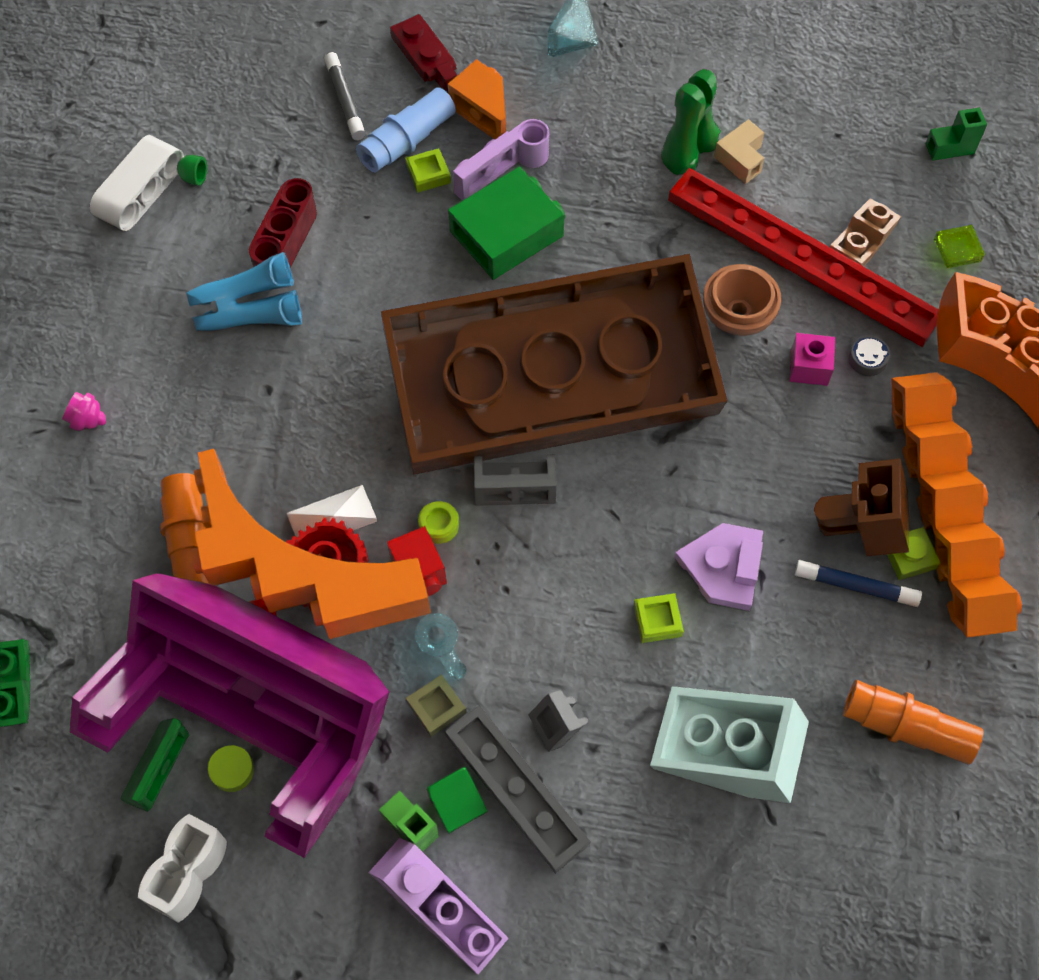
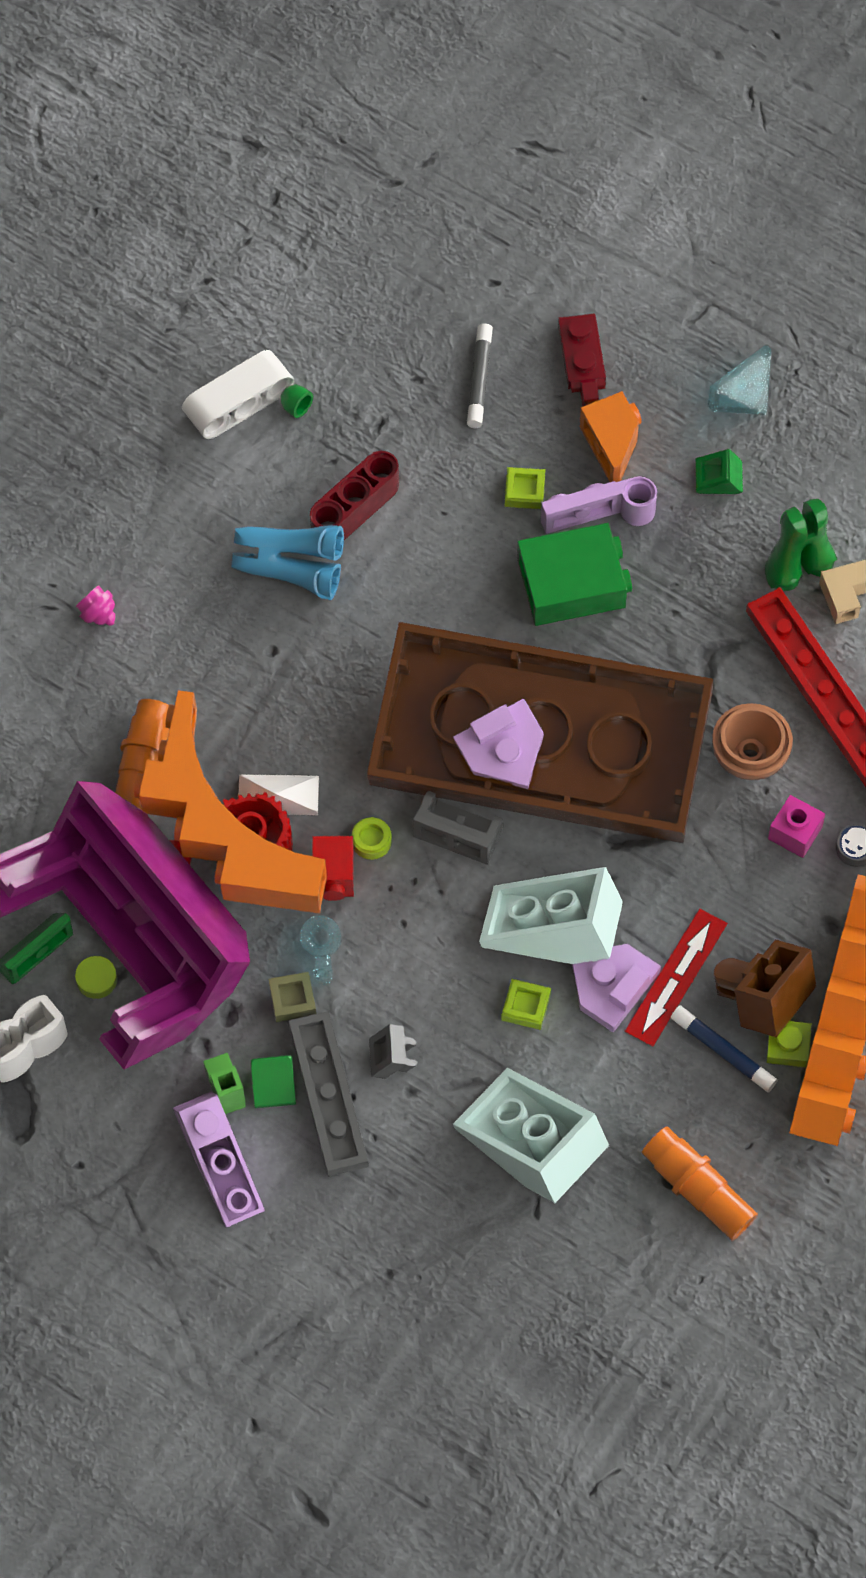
camera: 25 degrees right, 0 degrees up
(405, 130) = (520, 438): light blue piece -> none
(529, 385) = (503, 744): none -> lavender plate
(585, 100) = (719, 473): none -> green slope
(647, 526) = (555, 917): none -> light aqua slope
(778, 537) = (676, 977): none -> red sticker

